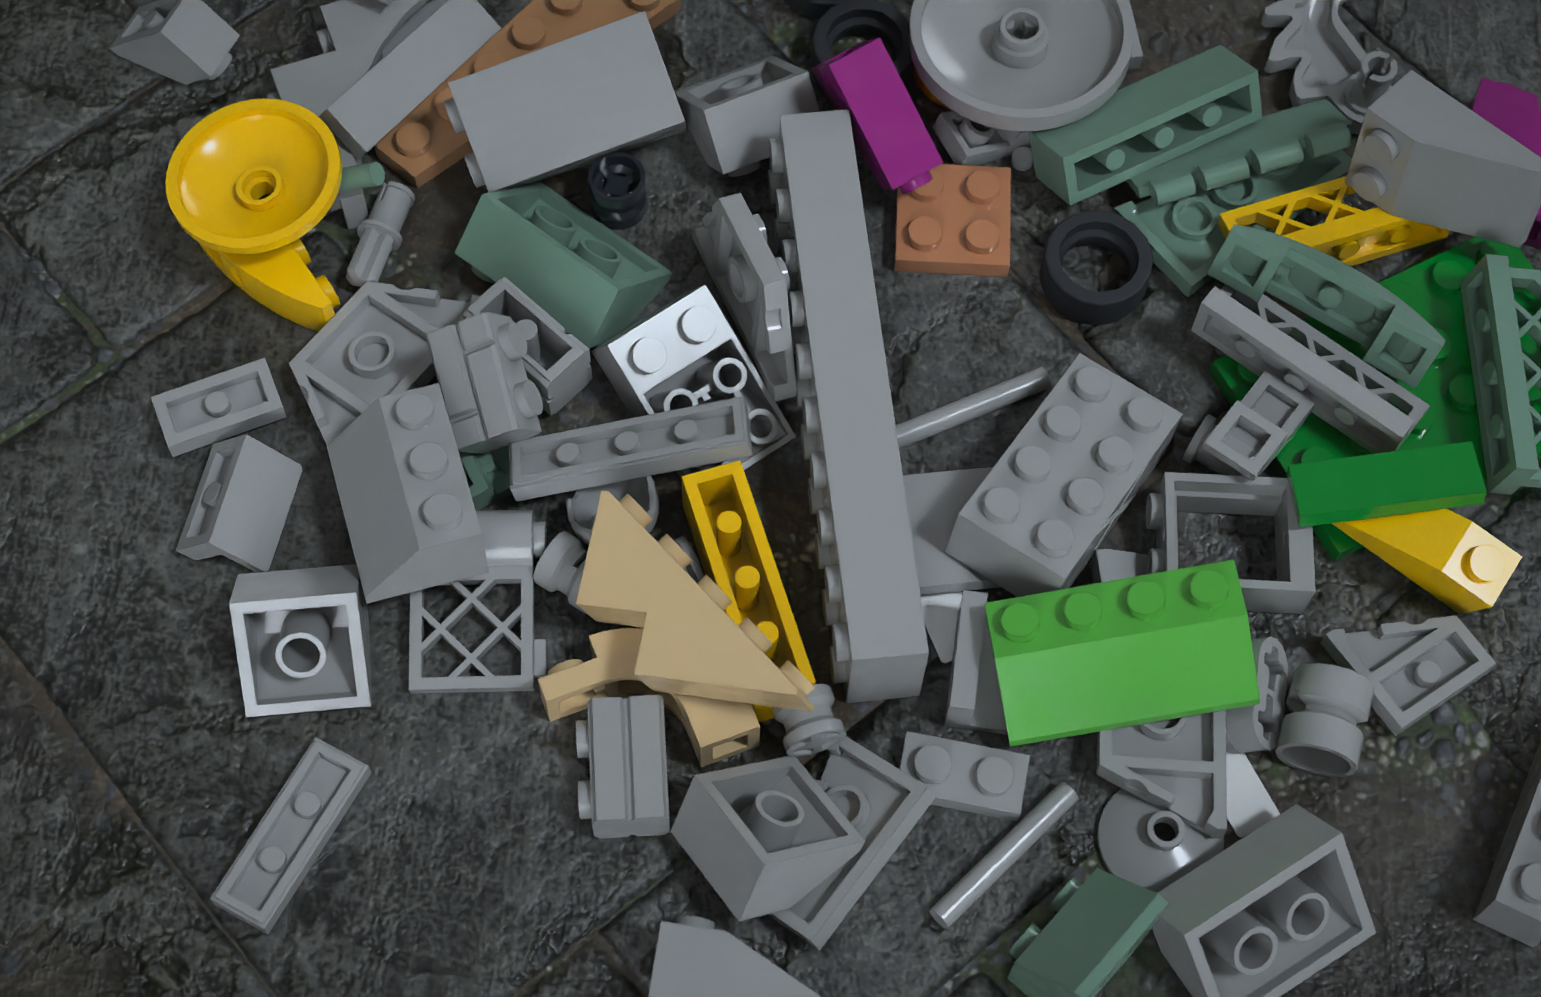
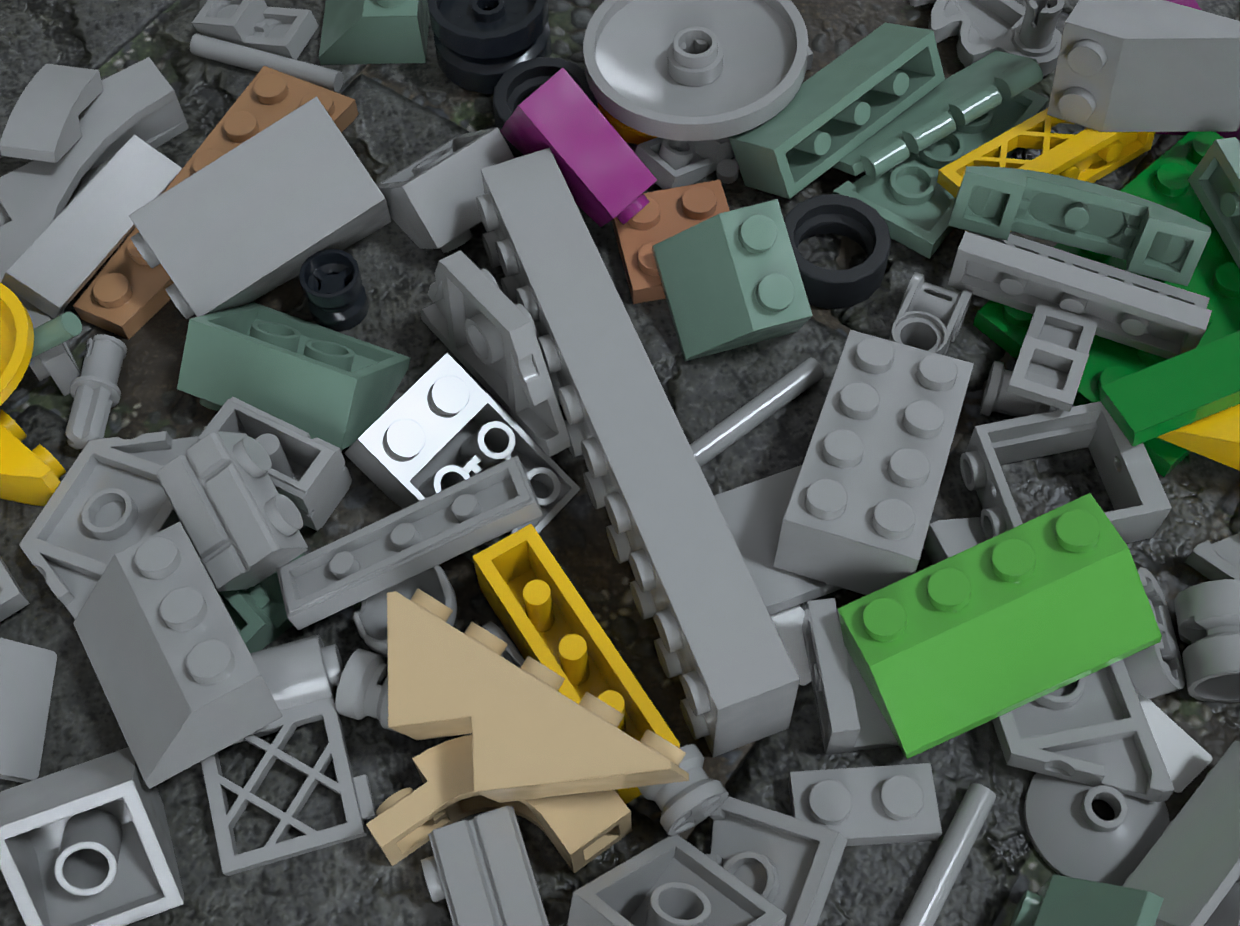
camera: 10 degrees left, 5 degrees down
(987, 277) = (732, 281): none -> sand green slope
(1163, 357) = (930, 316): none -> light grey piece

